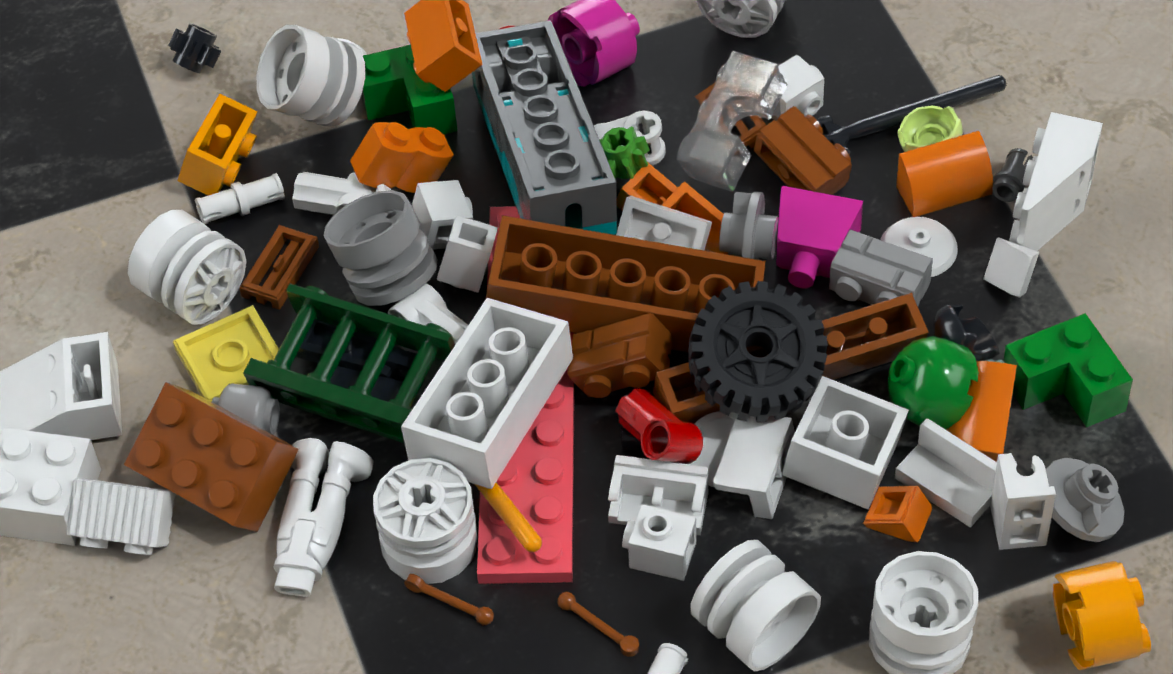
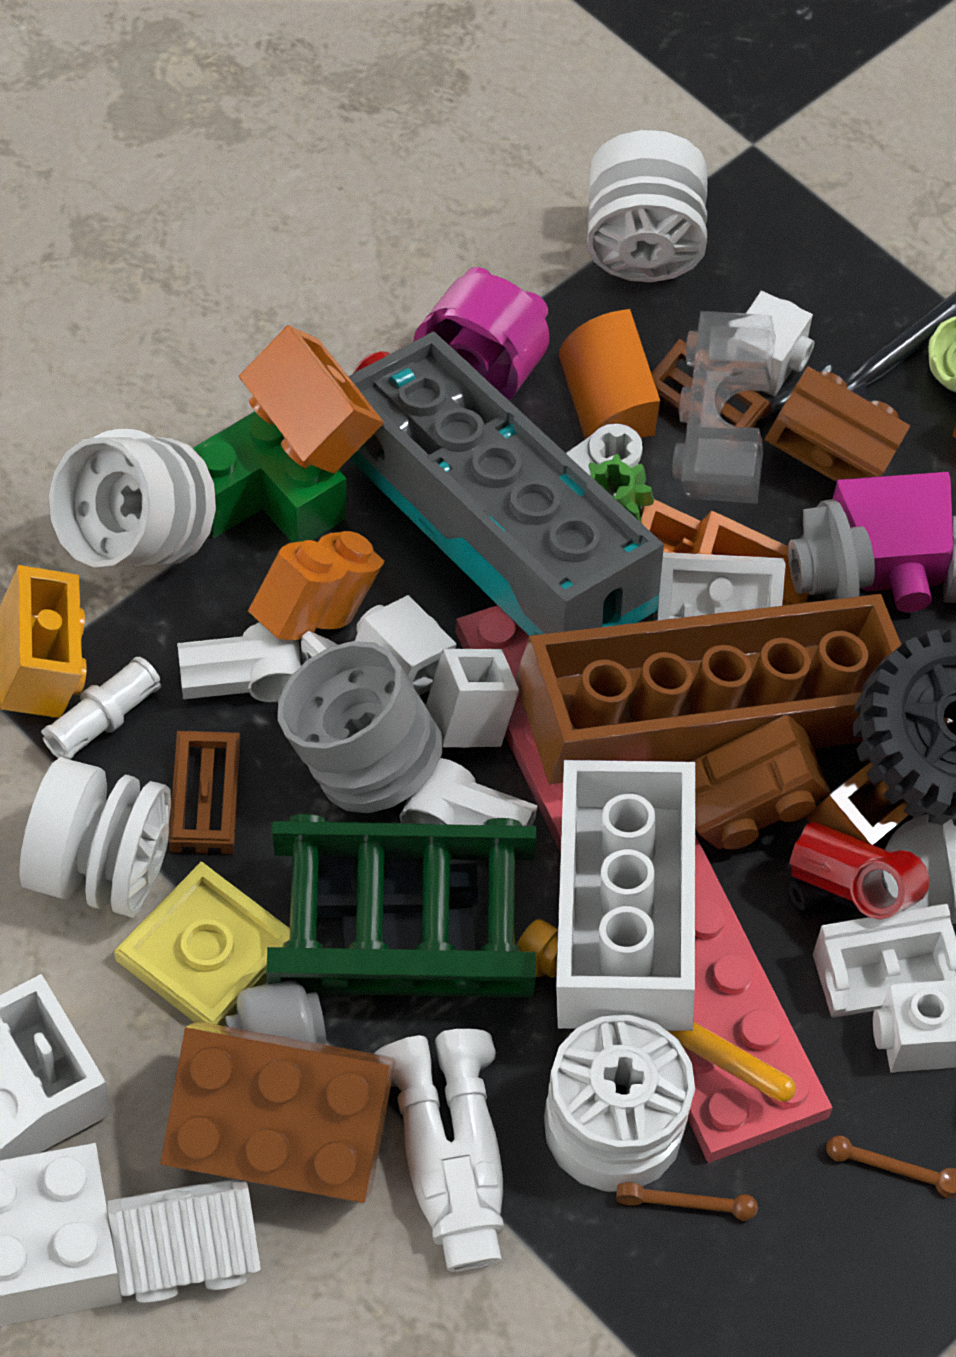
camera: 30 degrees left, 5 degrees up
(674, 86) = (610, 375): none -> orange brick

